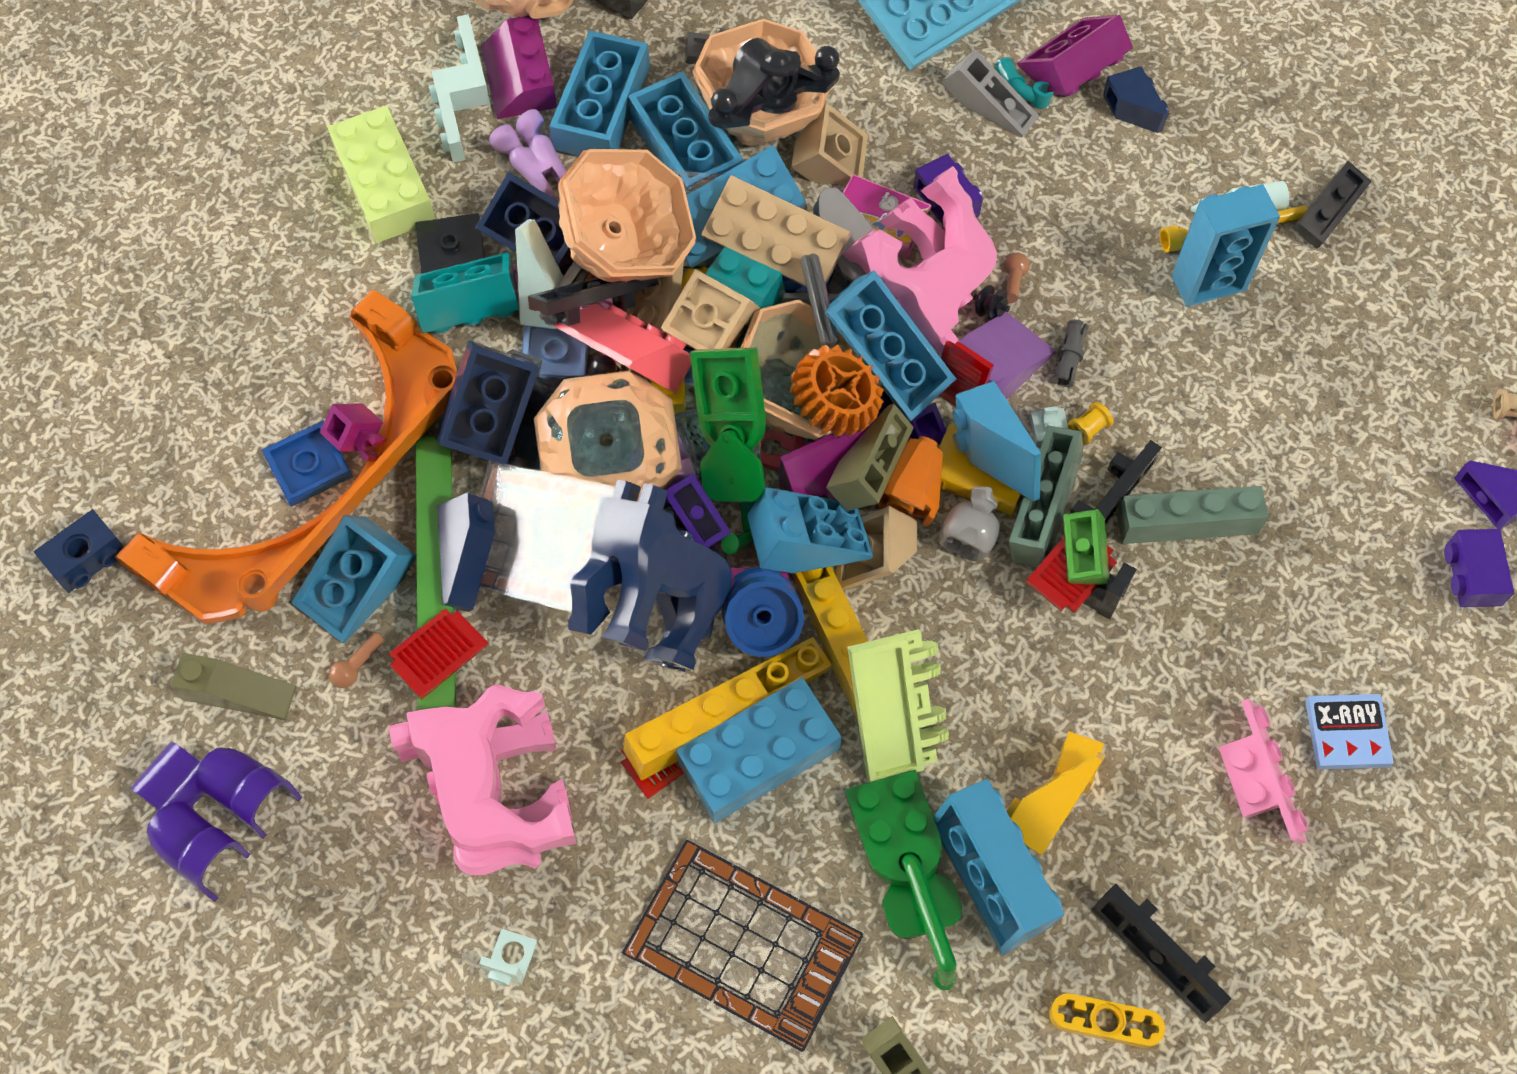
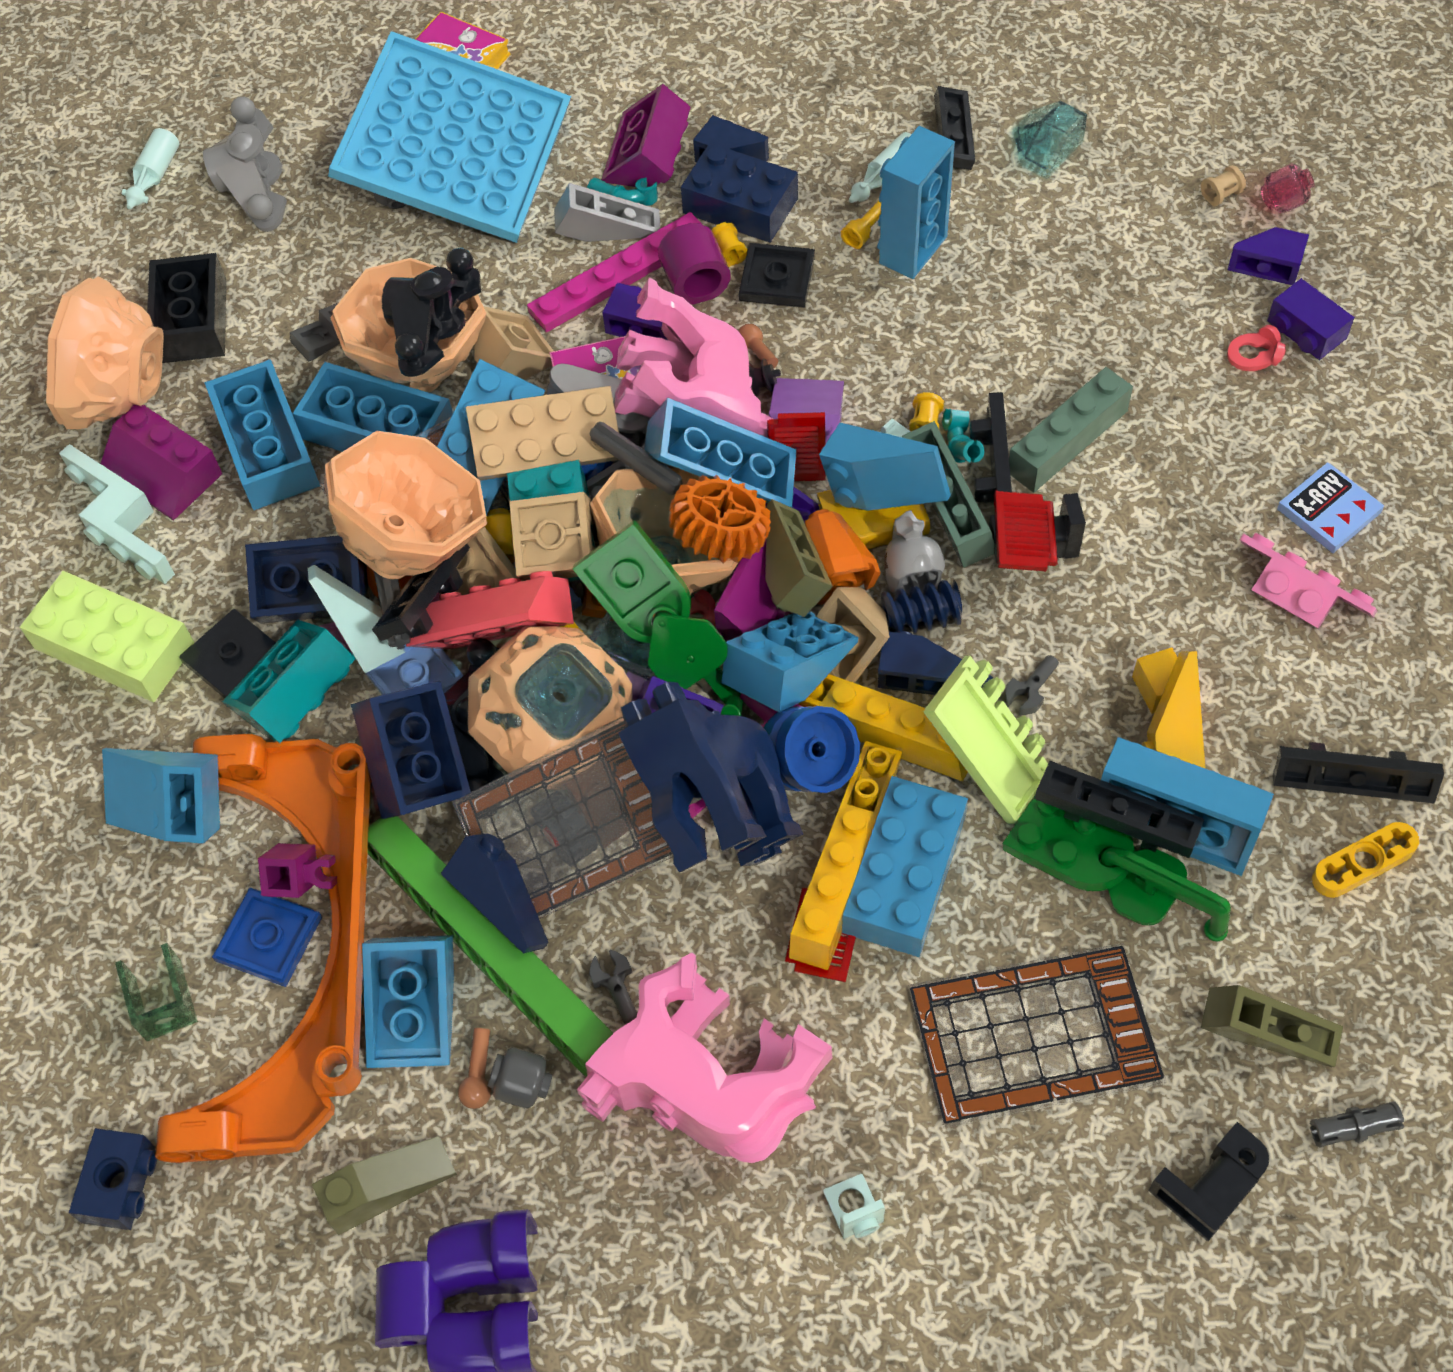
camera: 35 degrees left, 5 degrees down
(220, 457) = (181, 1009): none -> clear green piece
(320, 314) = (162, 793): none -> dark azure slope
(373, 688) = (519, 1078): none -> dark grey head
(436, 652) = (553, 999): red window -> none
(494, 673) = (615, 984): none -> dark grey bar
(538, 159) = (245, 524): lavender piece -> none
(904, 608) = (915, 664): none -> dark blue slope
(939, 833) = (1119, 809): none -> black hinge
(947, 570) = (923, 606): none -> dark blue piece
(965, 145) = (599, 281): none -> dark pink plate
(977, 690) = (1031, 686): none -> dark grey bar
(1019, 177) = (694, 263): none -> magenta piece
(1063, 181) = (733, 250): none -> yellow bush
(1070, 353) = (859, 374): dark grey pin -> none
(1080, 230) = (777, 275): none -> black plate
(1086, 548) = (1022, 506): bright green slope -> none
(1096, 465) = (960, 445): none -> teal piece
(1109, 144) = (740, 192): none -> dark blue brick
(1403, 265) = (1049, 137): none -> clear light blue slope
(1429, 557) = (1267, 338): none -> coral piece

